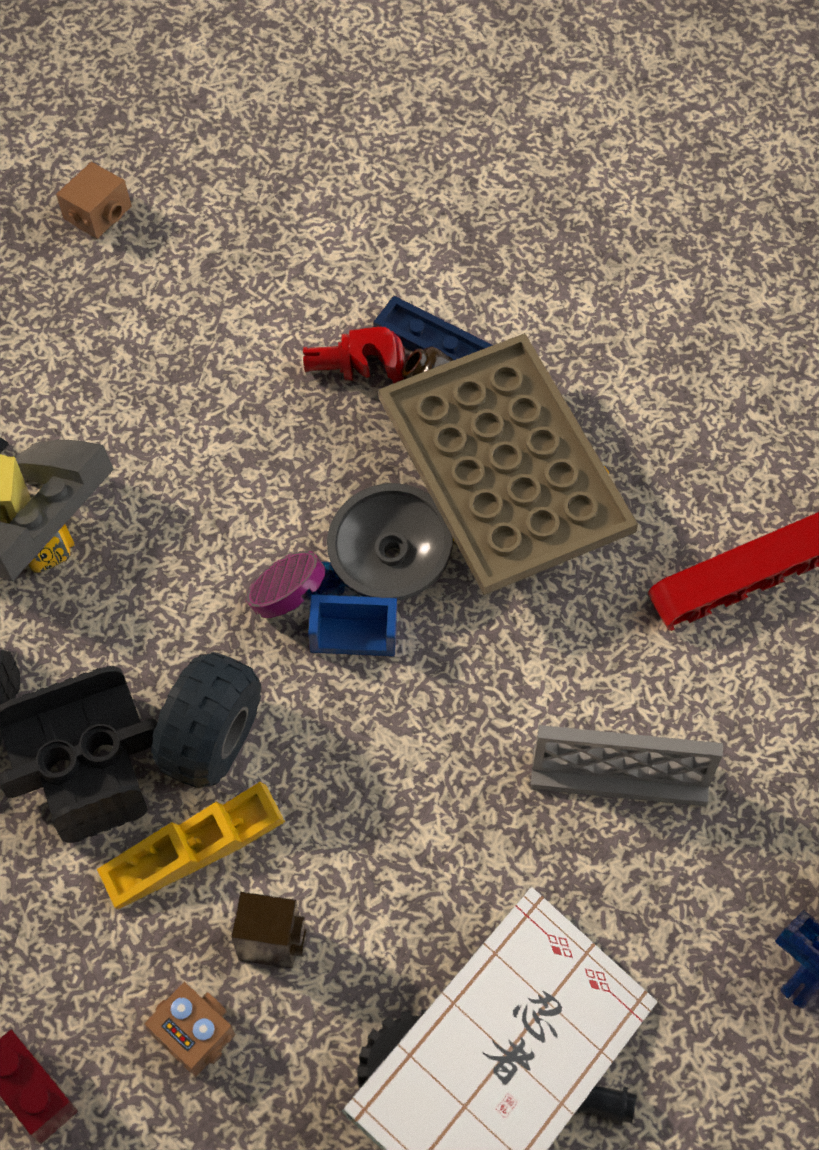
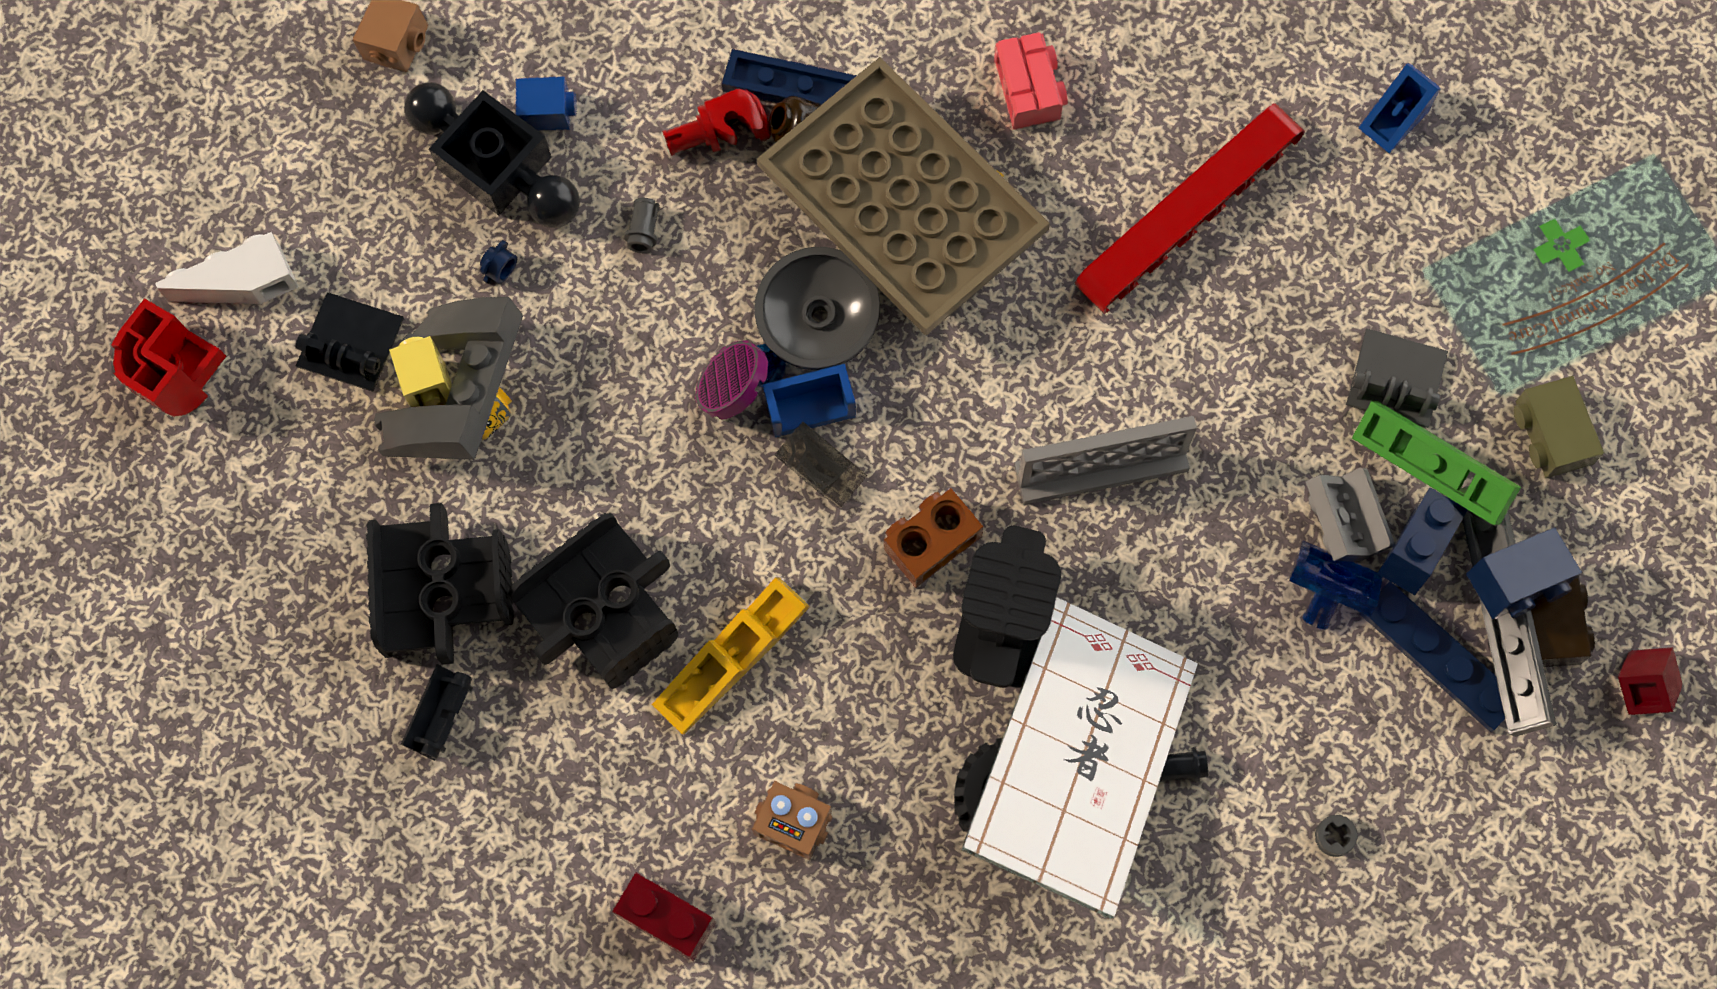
camera: 15 degrees left, 10 degrees up
(110, 419) = (498, 263): none -> dark blue plate
(142, 324) = (491, 153): none -> black brick
(206, 295) = (545, 102): none -> blue brick
(206, 720) = (708, 536): black wheel -> none
(256, 425) = (642, 228): none -> dark grey pin
(268, 930) = (835, 711): dark brown brick -> none
(343, 690) = (820, 465): none -> clear smoke tile
(433, 801) = (940, 544): none -> dark orange brick
(475, 876) = (1006, 607): none -> black piece
(662, 398) = (1029, 80): none -> coral brick

